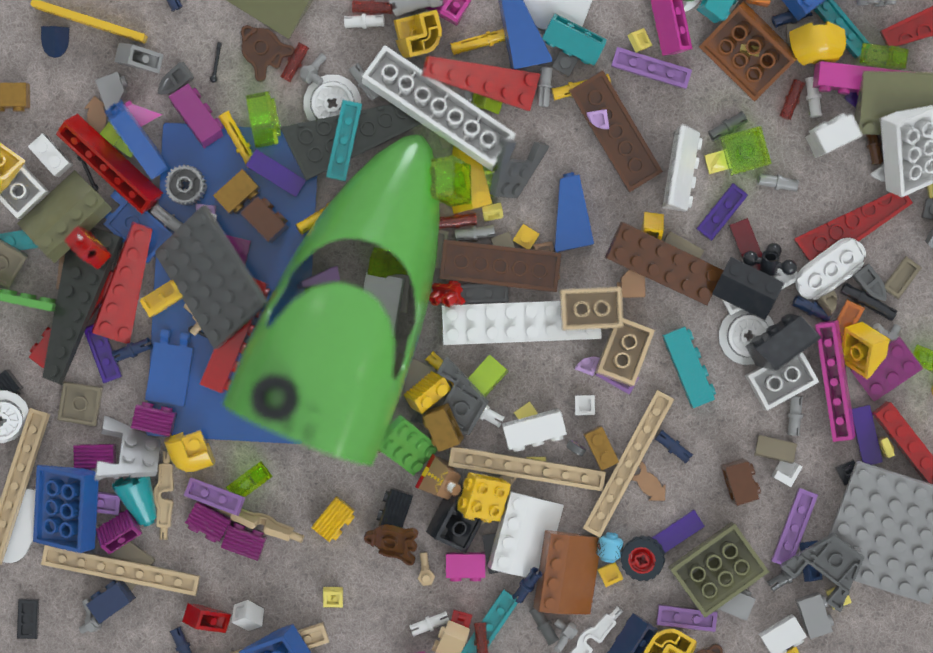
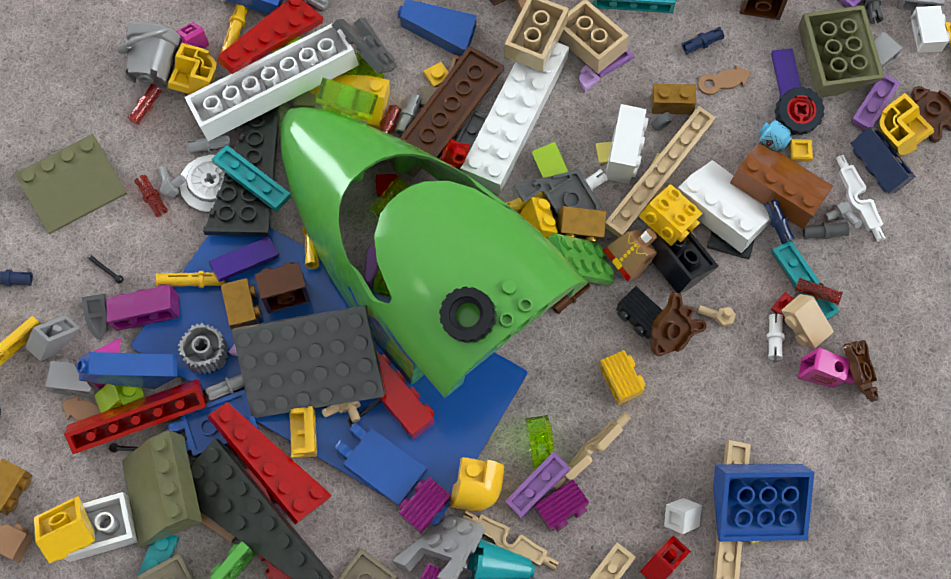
camera: 60 degrees left, 20 degrees down
(50, 155) = (91, 474): white brick -> none
(83, 242) = (198, 474): red torso -> none
(102, 354) = (329, 529): dark purple tile -> none
(132, 350) = (339, 494): dark blue pin -> none
(244, 541) = (602, 478): magenta brick -> none
(263, 49) = (121, 220): reddish brown tile -> none
(263, 119) = (184, 242): clear neon green brick -> none
(333, 597) = (703, 418): light yellow tile -> none
(364, 21) = (153, 117): white pin -> none
(465, 565) = (731, 272): dark pink brick -> none
(492, 212) = (397, 89): light yellow tile -> none
(584, 404) = (624, 95): white plate -> none
(628, 463) = (706, 90): tan plate -> none

